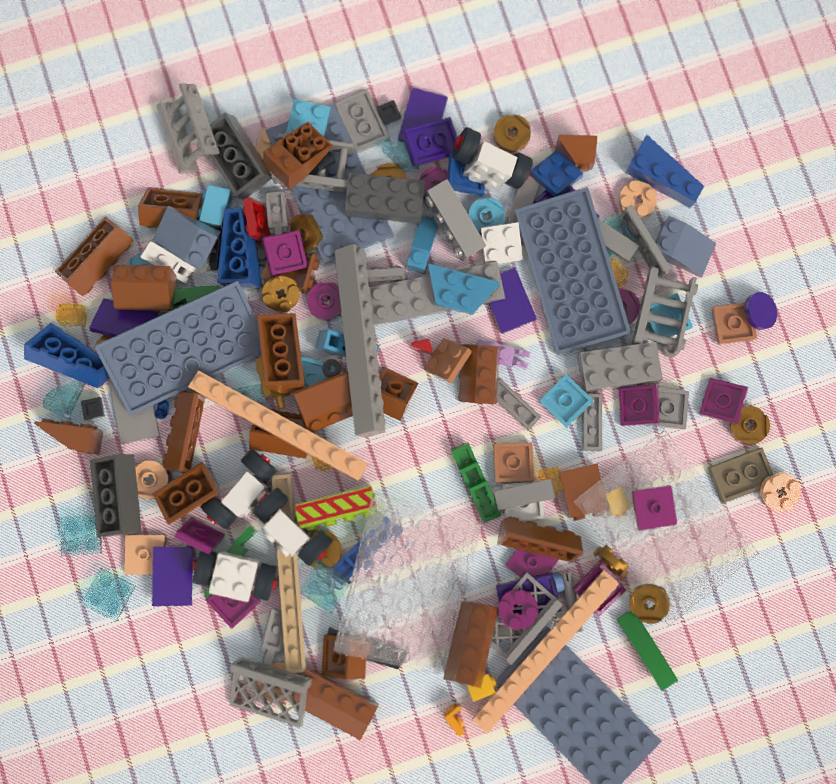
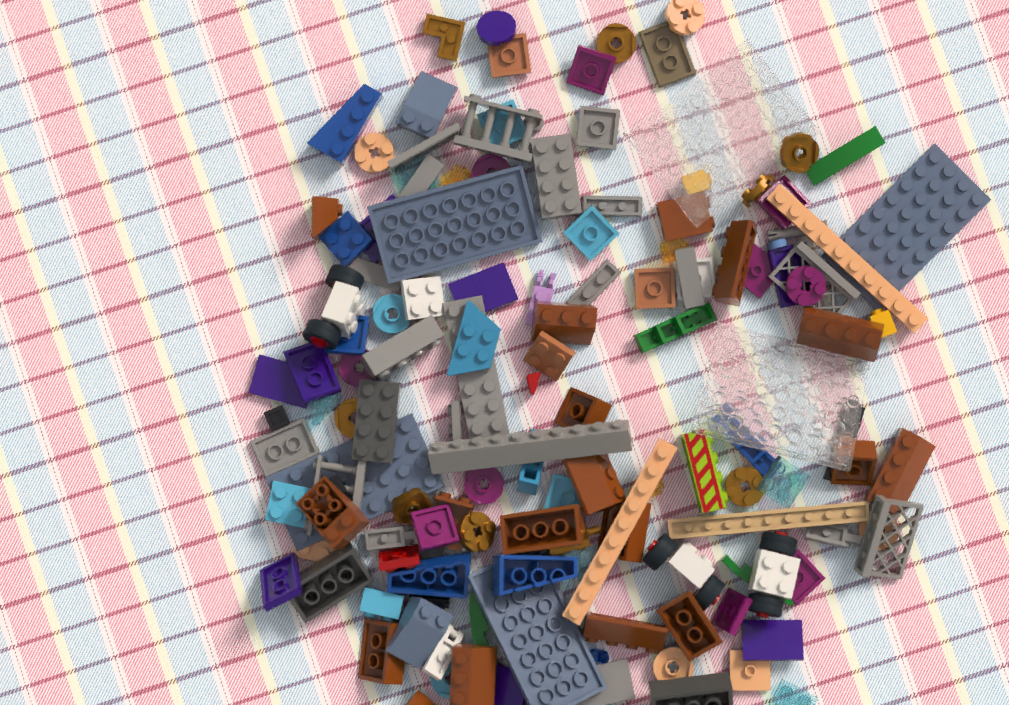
camera: 85 degrees left, 5 degrees up
(175, 132) = (301, 647): light grey fence -> none
(235, 111) = (280, 582): none -> dark purple tile
(239, 333) = (523, 572): none -> blue wedge
(286, 533) = (731, 520): brick -> none
(331, 362) = (553, 482): black plate -> none
(422, 246) = (423, 381): dark azure slope -> none
(456, 723) = (917, 350): light orange bracket -> none
(511, 123) = (300, 297): pearl gold plate -> none
(639, 405) = (596, 157): magenta plate -> none
(654, 507) = (703, 145): magenta plate -> none
(755, 267) = (449, 31): none -> pearl gold plate

